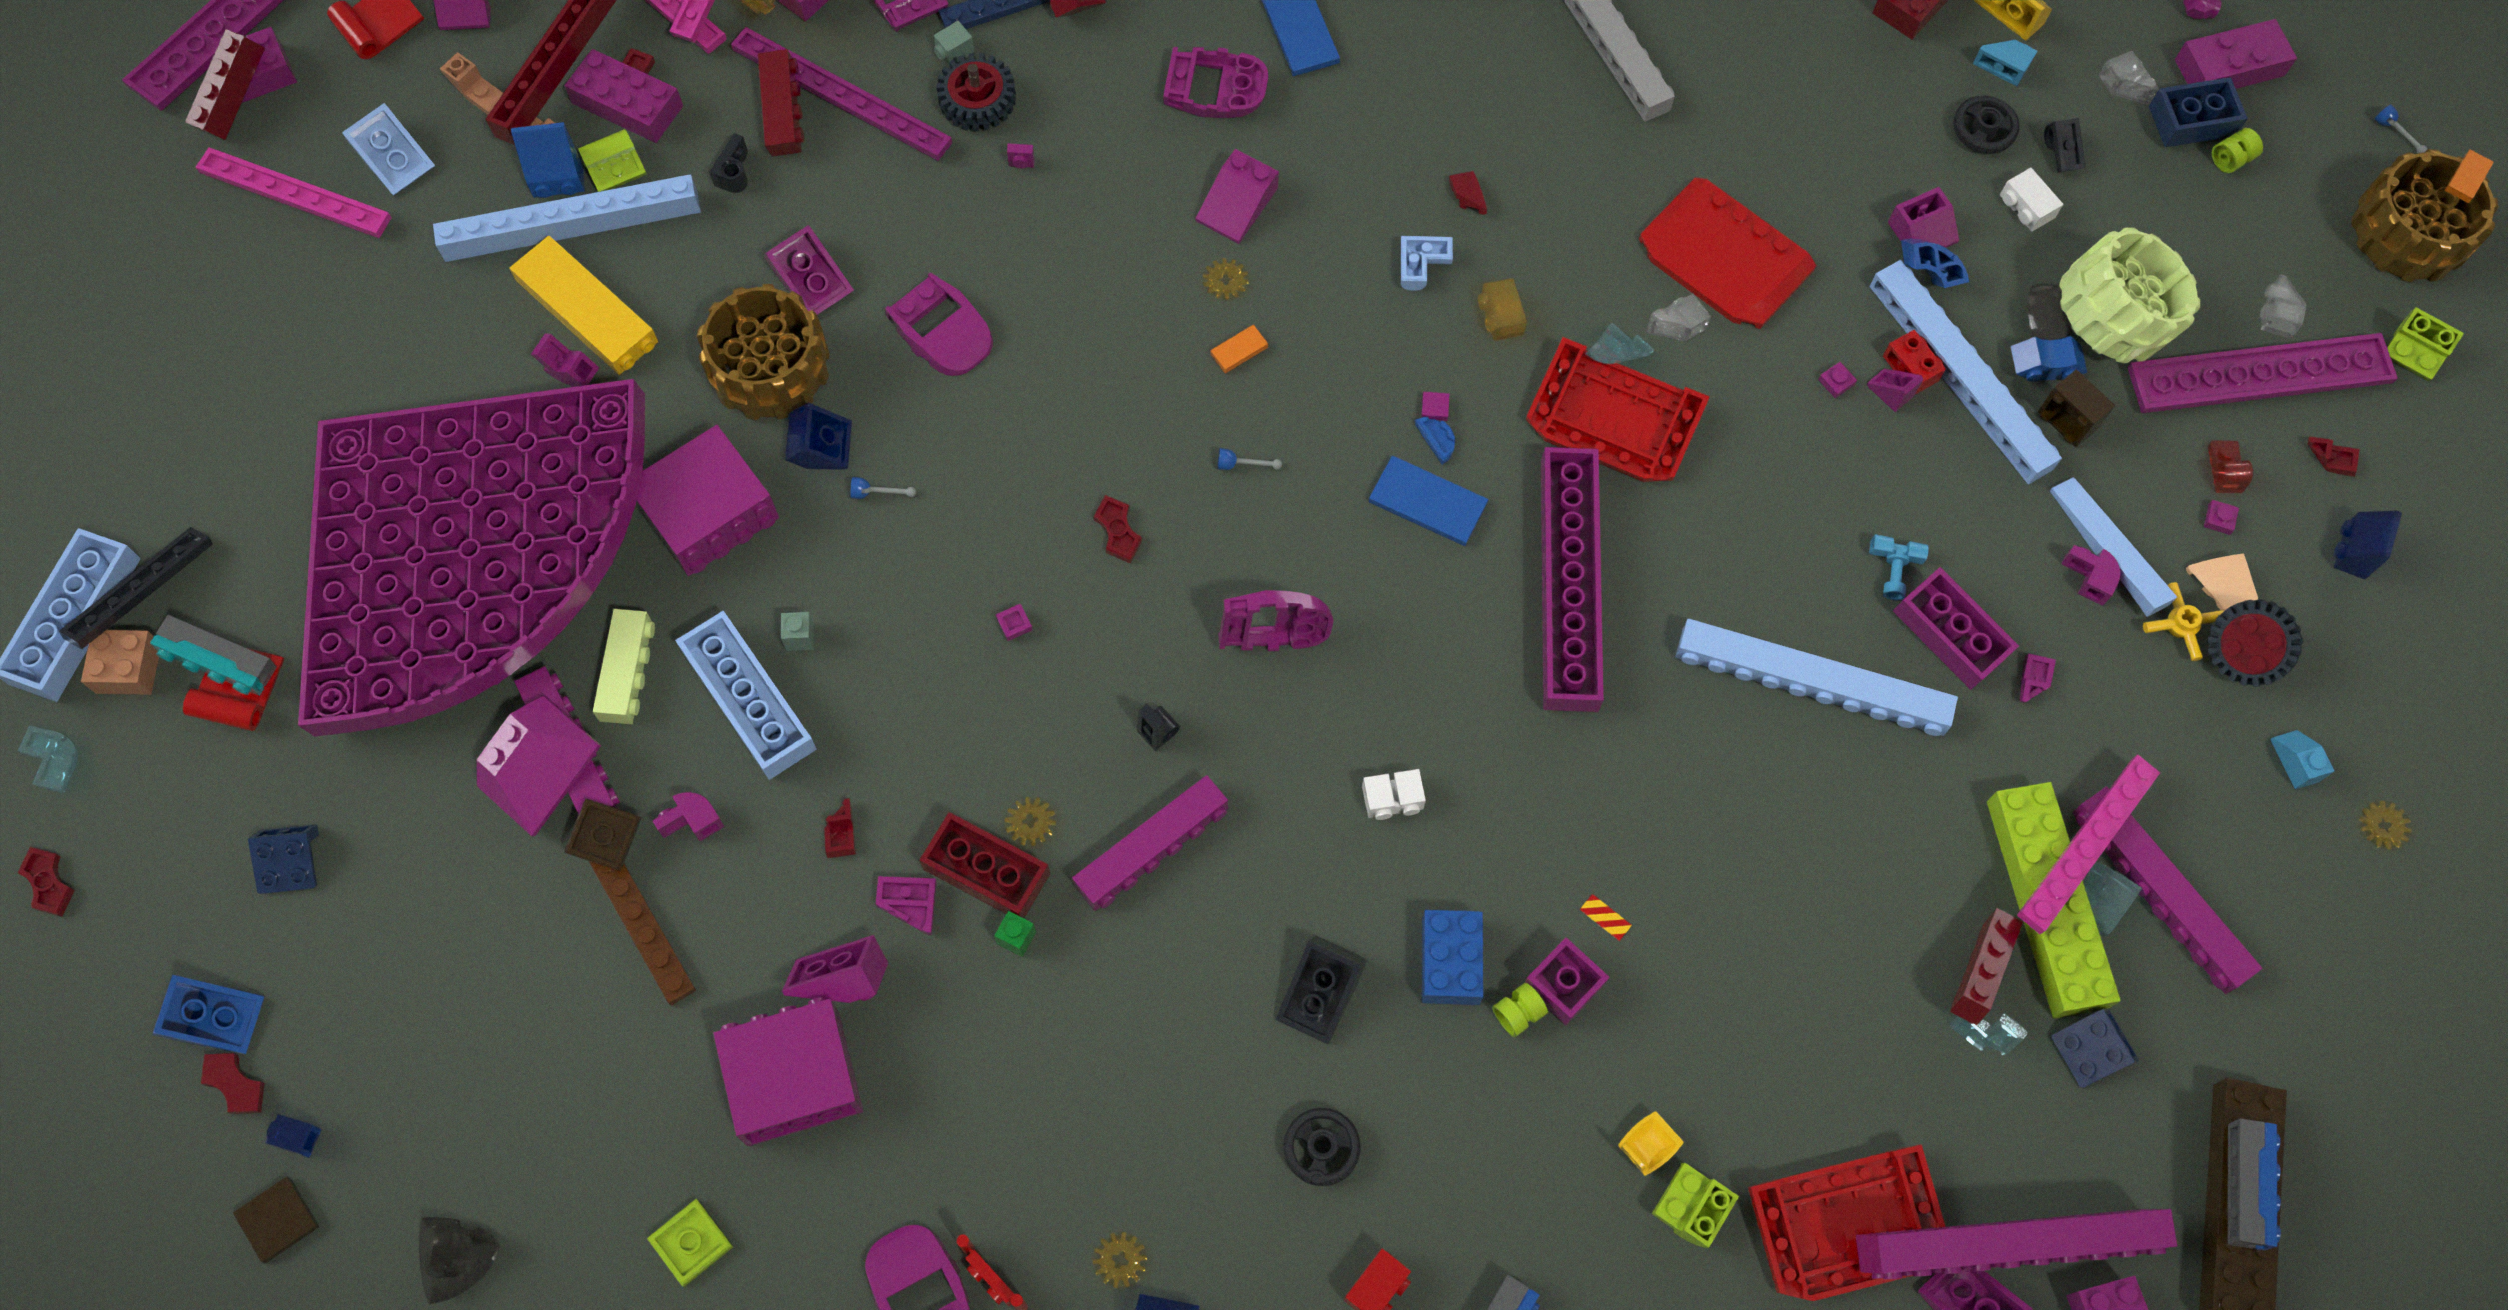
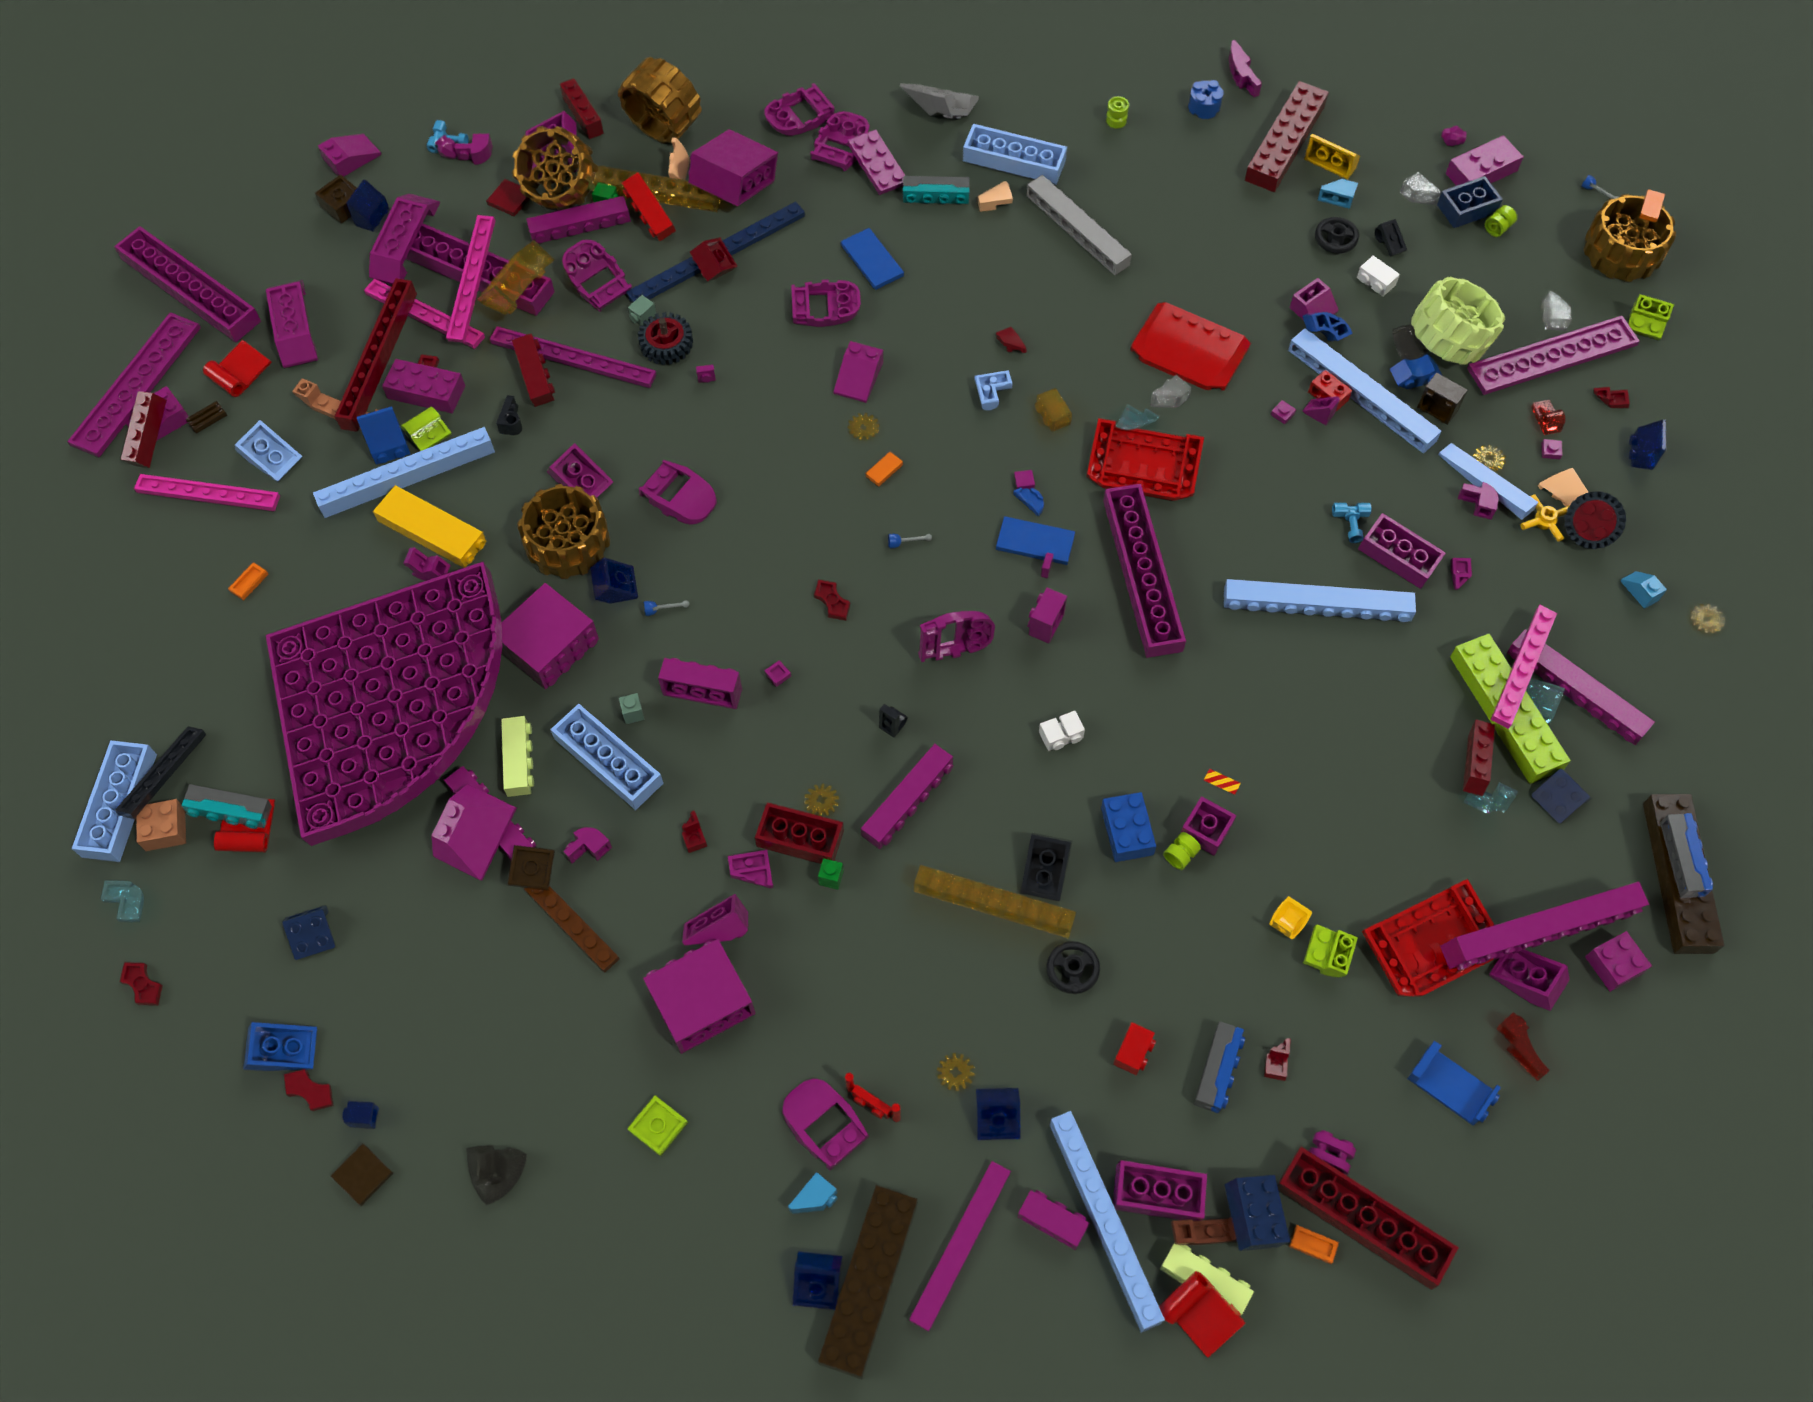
camera: 10 degrees left, 5 degrees down
(317, 79) = (205, 414): none -> dark brown tile
(320, 333) = (248, 581): none -> orange tile
(900, 615) = (700, 683): none -> magenta brick
(1235, 1025) = (994, 901): none -> clear yellow brick
(1414, 618) = (1047, 615): none -> magenta brick
(1434, 542) = (1046, 567): none -> magenta tile
(2121, 521) = (1497, 460): none -> clear yellow gear

